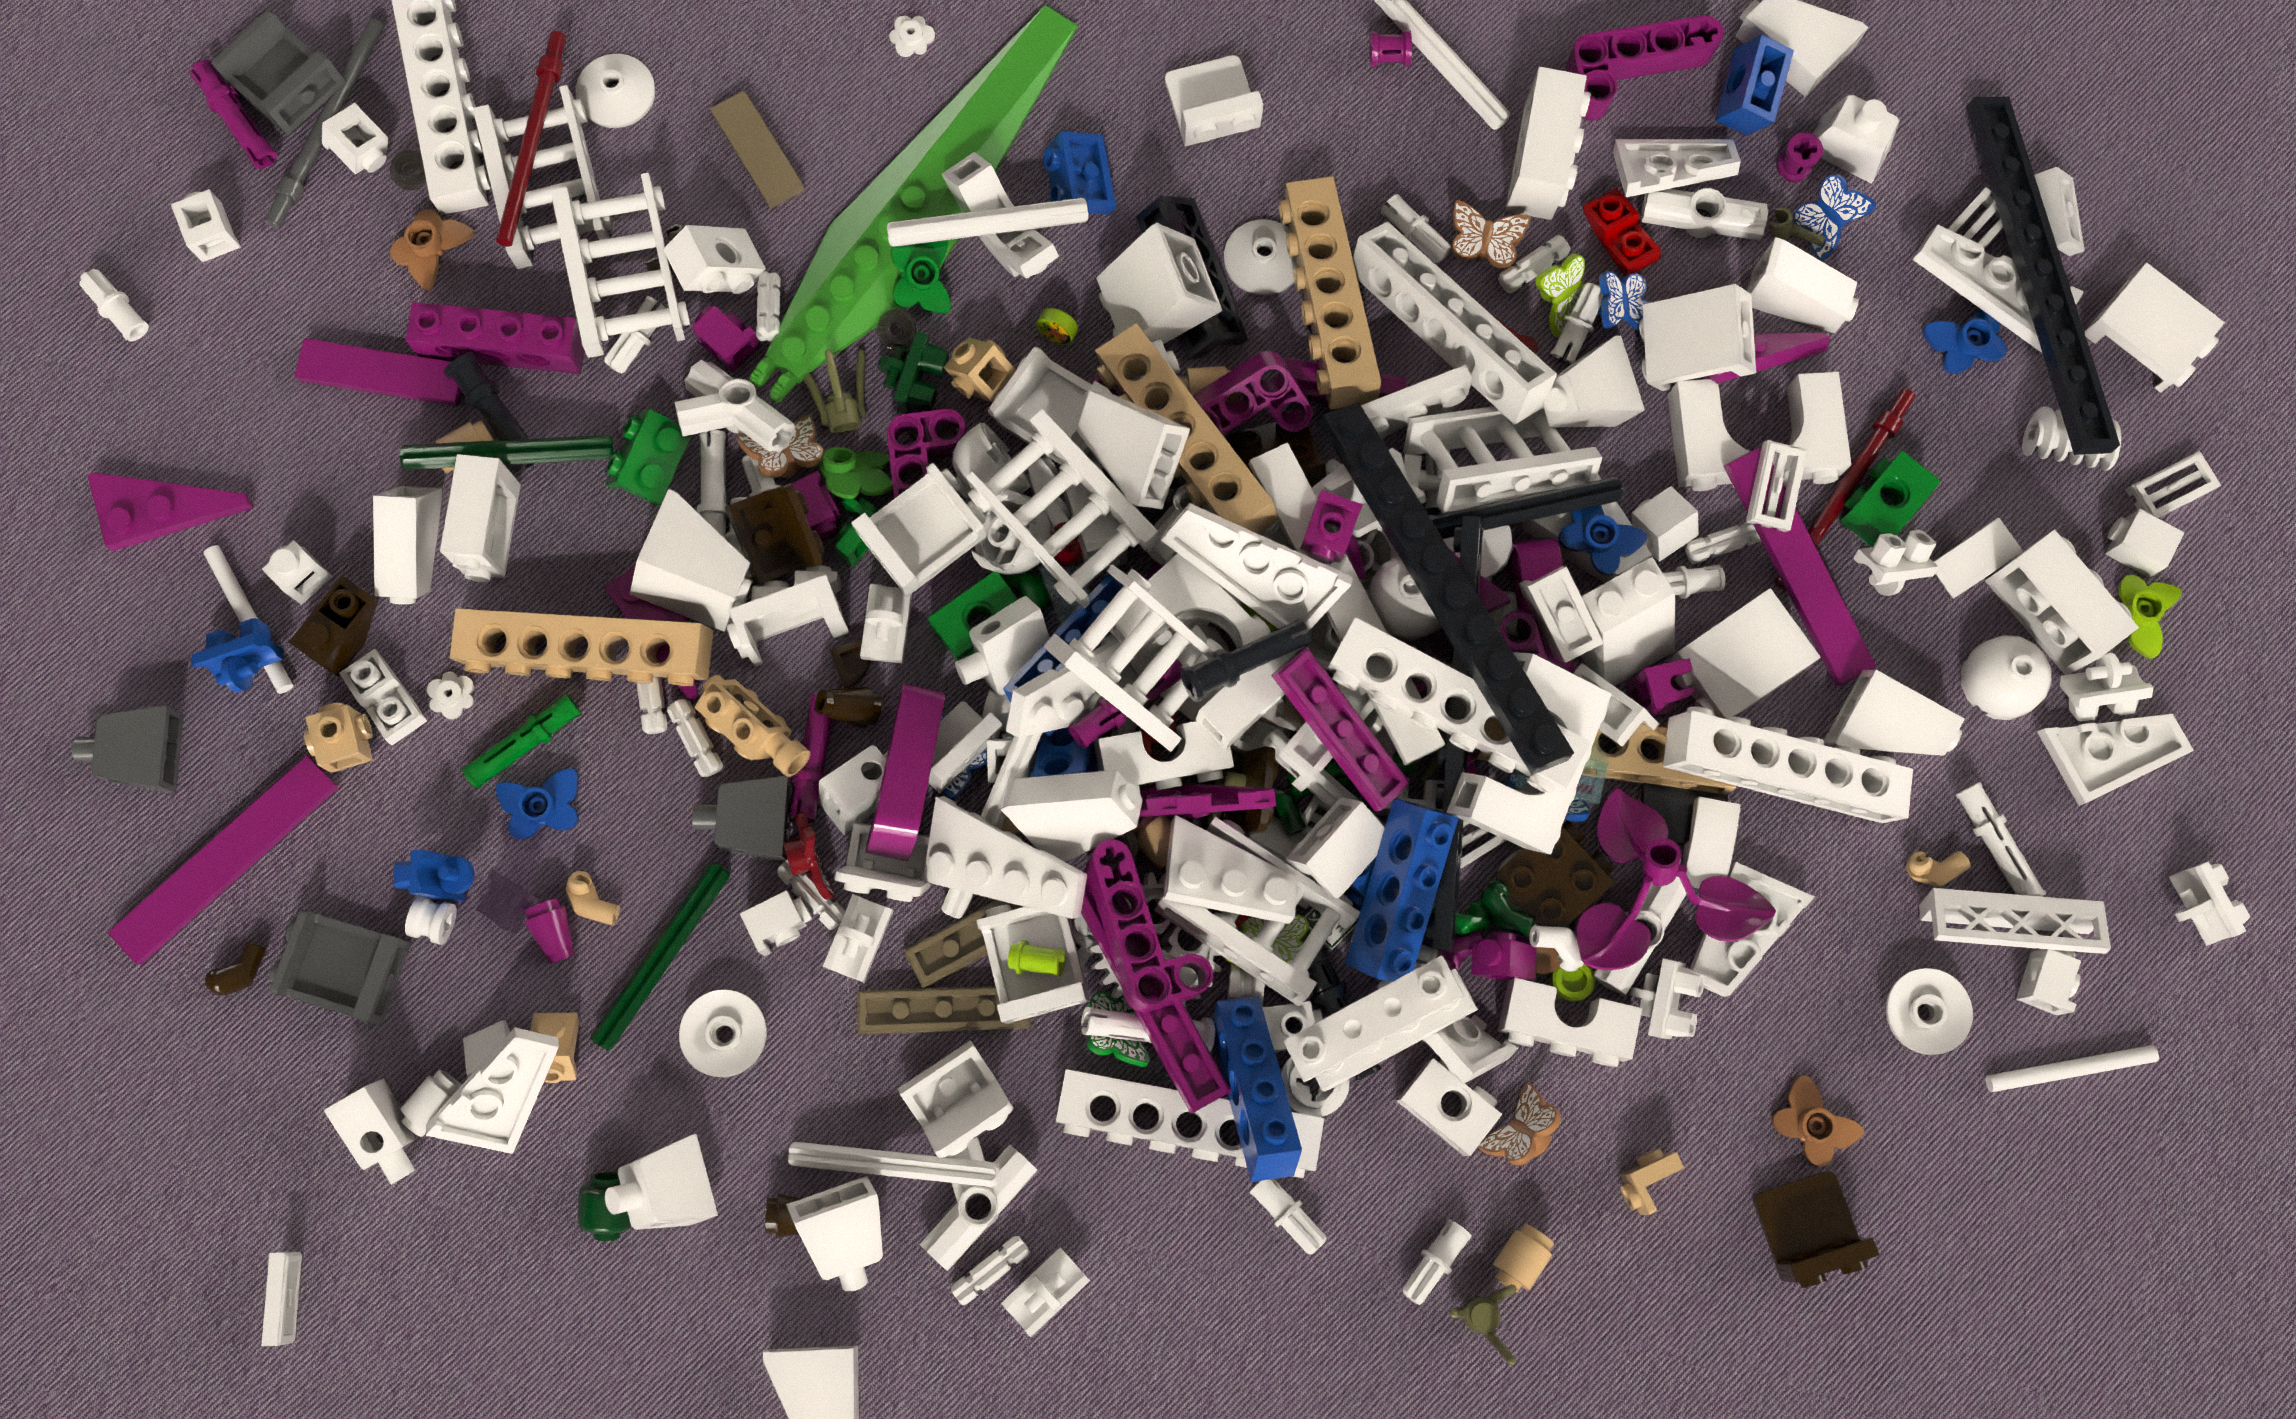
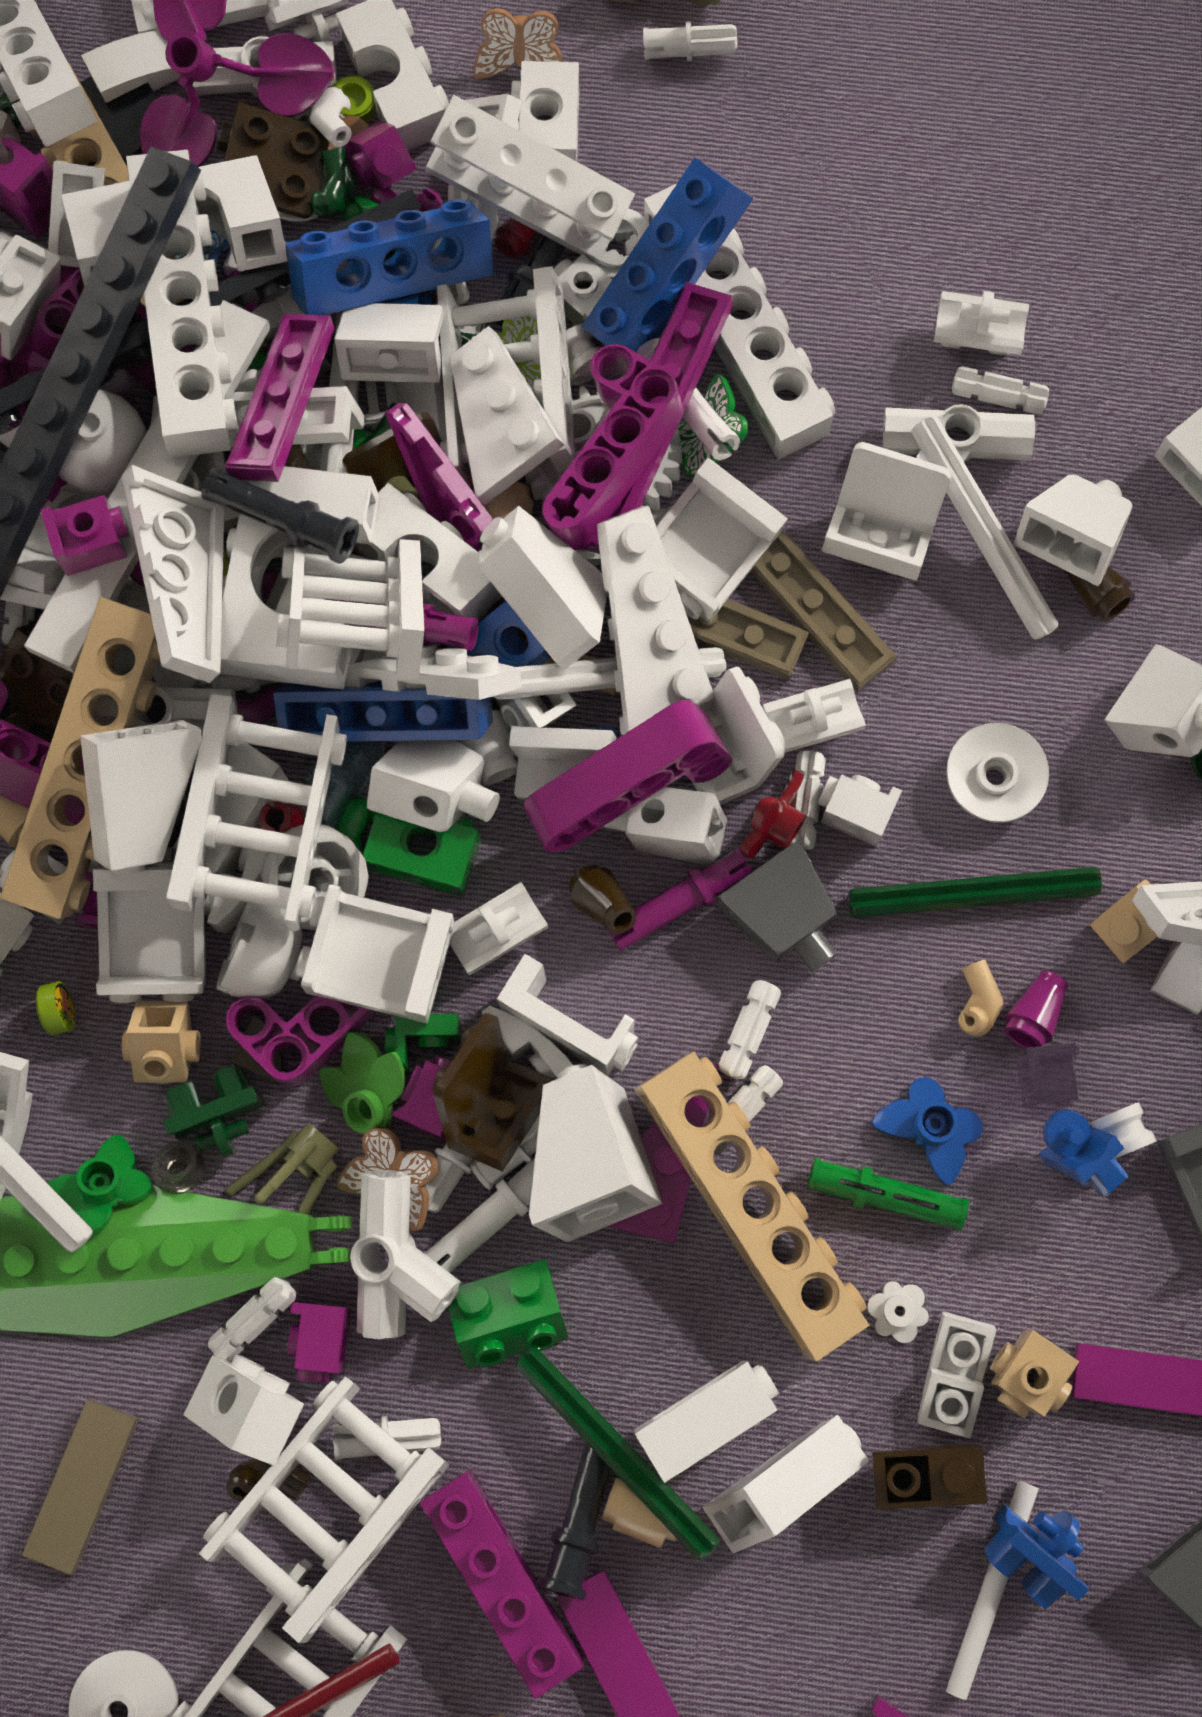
camera: 120 degrees left, 0 degrees up
(293, 564) = (908, 1575): white brick -> none
(749, 725) = (704, 979): tan brick -> none
(849, 663) = (557, 943): dark brown tile -> none
(1036, 959) = (705, 535): lime pin -> none
(1289, 1215) = (750, 177): white axle -> none

